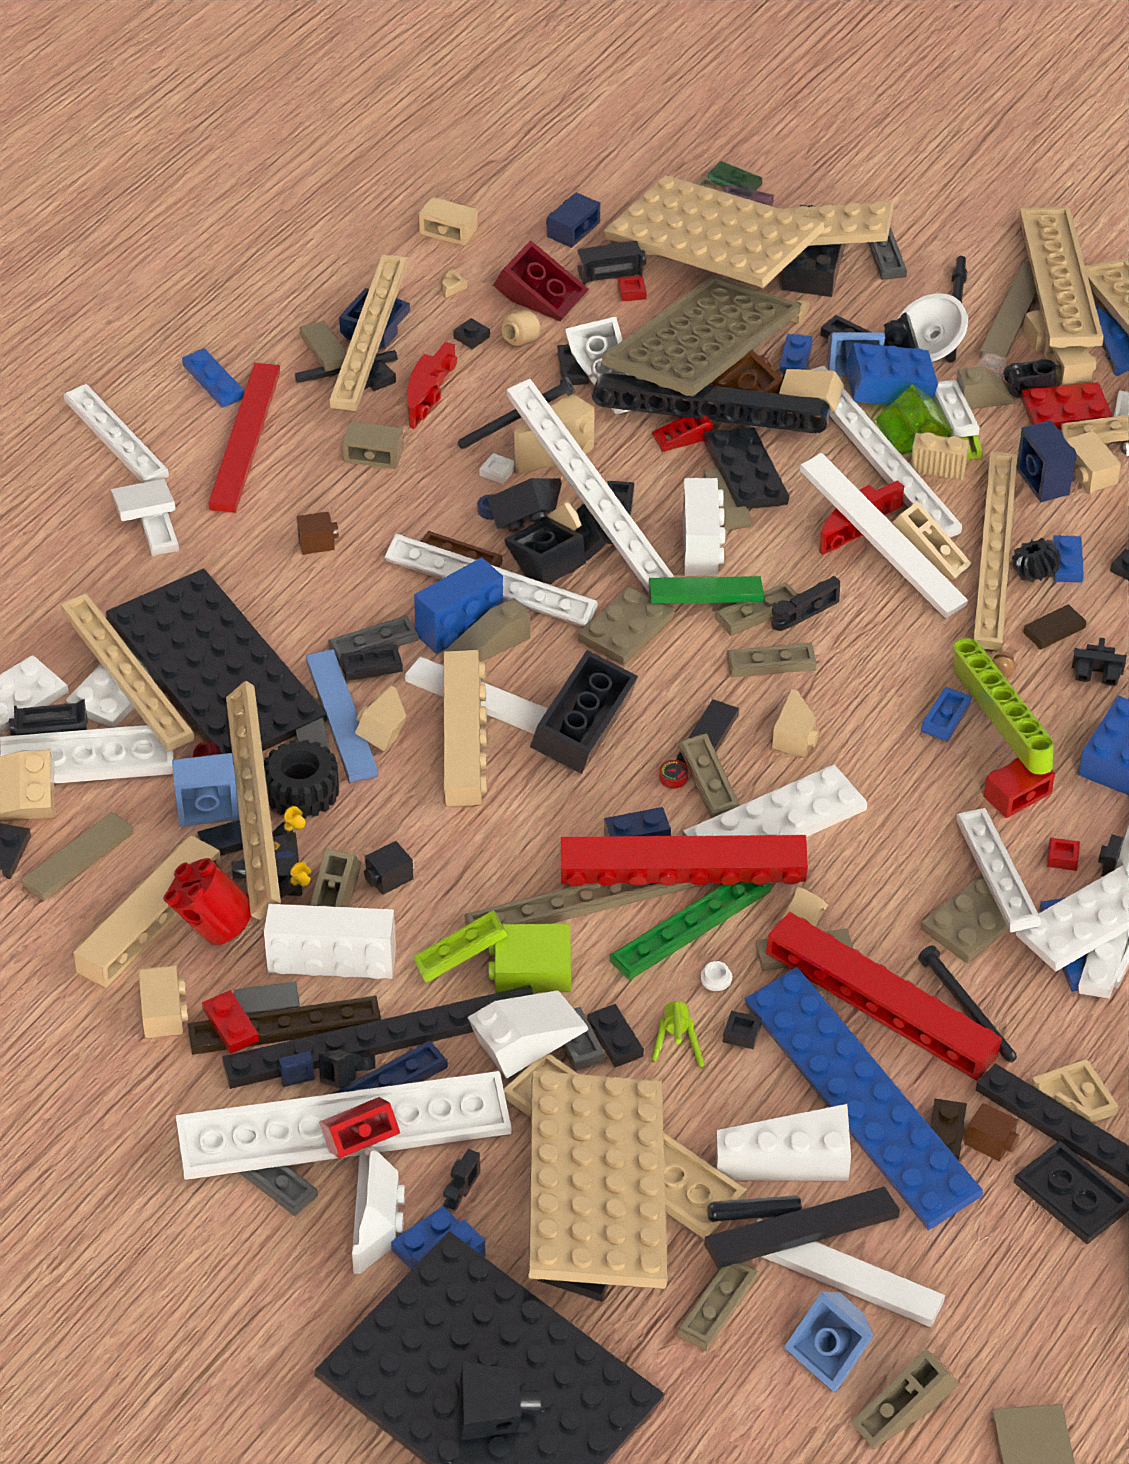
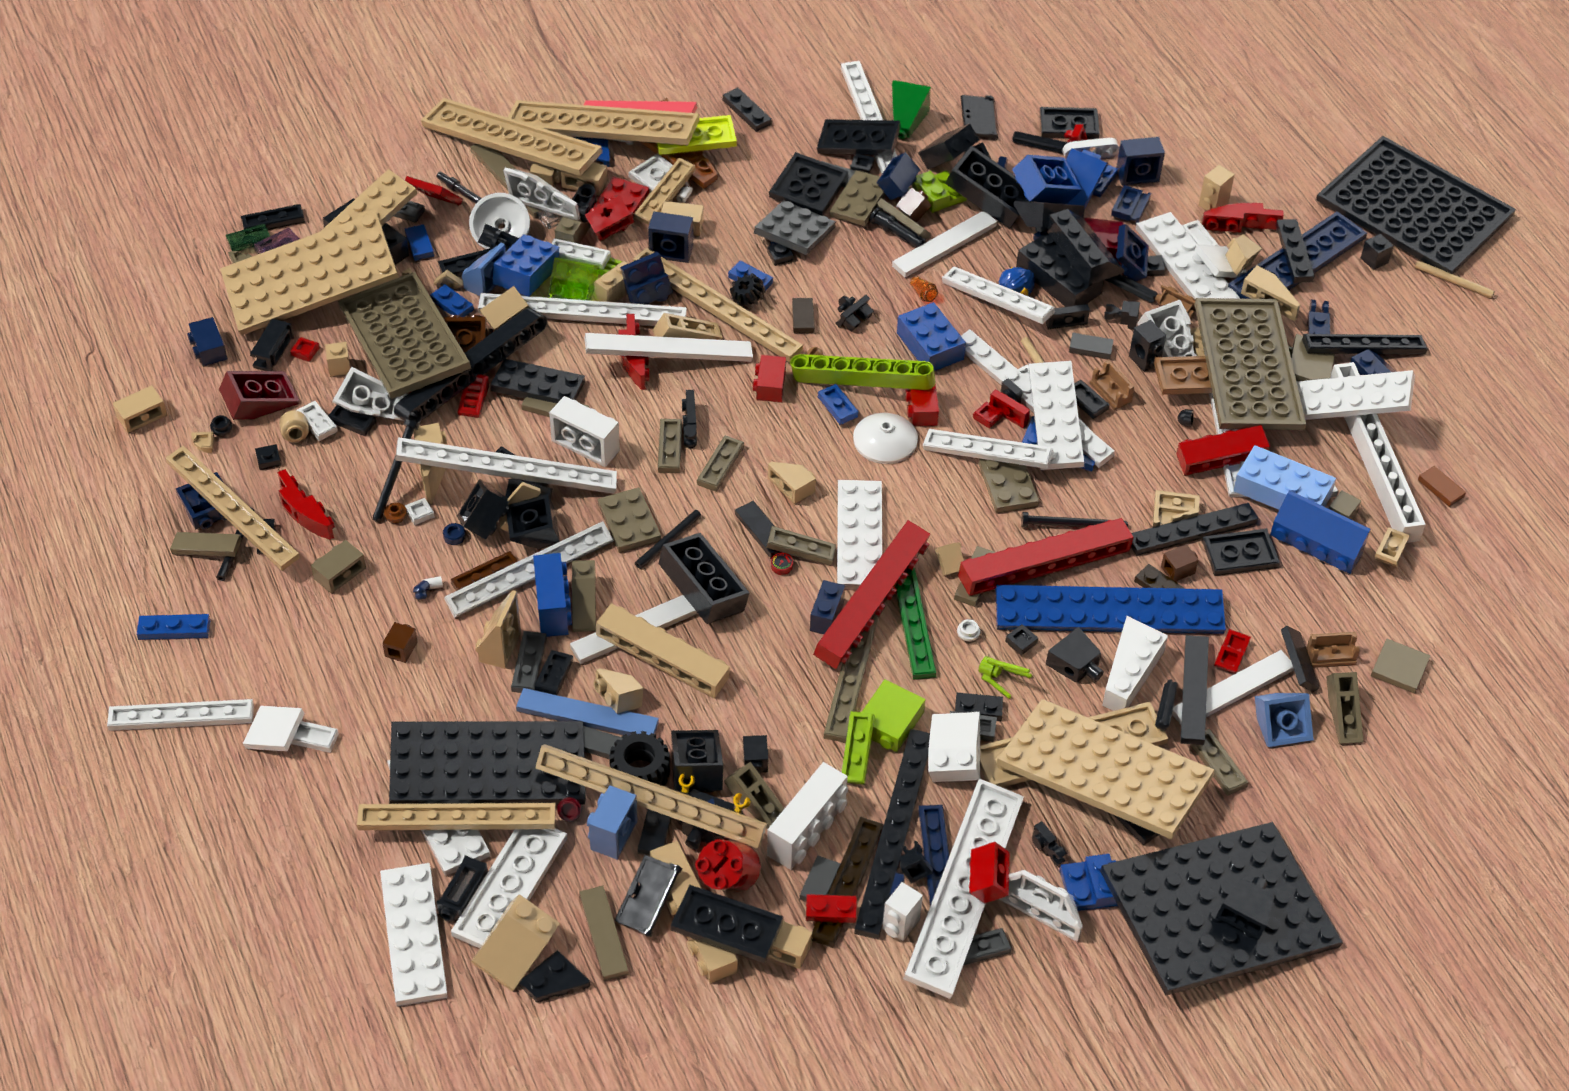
camera: 60 degrees left, 5 degrees up
(134, 934) = (727, 923): none -> black plate
(137, 861) = (645, 907): none -> door
(244, 438) = (256, 637): red tile -> none
(259, 1075) = (902, 911): none -> white brick
(346, 821) = (697, 755): none -> black slope
(377, 590) = (500, 633): none -> tan slope
(406, 517) = (426, 584): none -> arm
(478, 452) = (395, 513): none -> dark orange plate
(479, 282) = (220, 425): none -> black plate
(545, 341) = (318, 421): none -> white plate
(633, 311) = (337, 359): none -> tan brick
(642, 669) = (674, 533): none -> black piece
(706, 589) = (640, 460): green tile -> none
(758, 1089) = (1075, 657): none -> black torso
(783, 183) = (275, 218): none -> black tile
(819, 335) = (449, 279): none -> tan tile
(853, 292) = (419, 242): none -> blue tile
(897, 1249) = (1232, 651): none -> red slope
(917, 257) = (434, 191): none -> red tile
(927, 640) = (770, 379): none -> red brick
(940, 780) = (885, 438): none -> white dish
(946, 1319) = (1300, 658): none -> black tile
(960, 472) = (646, 280): none -> dark blue plate
(990, 1350) = (1333, 649): none -> medium nougat hinge
(998, 327) = (539, 194): none -> white wedge
(1024, 402) = (618, 220): none -> red brick
(1087, 857) = (1011, 409): none -> red plate

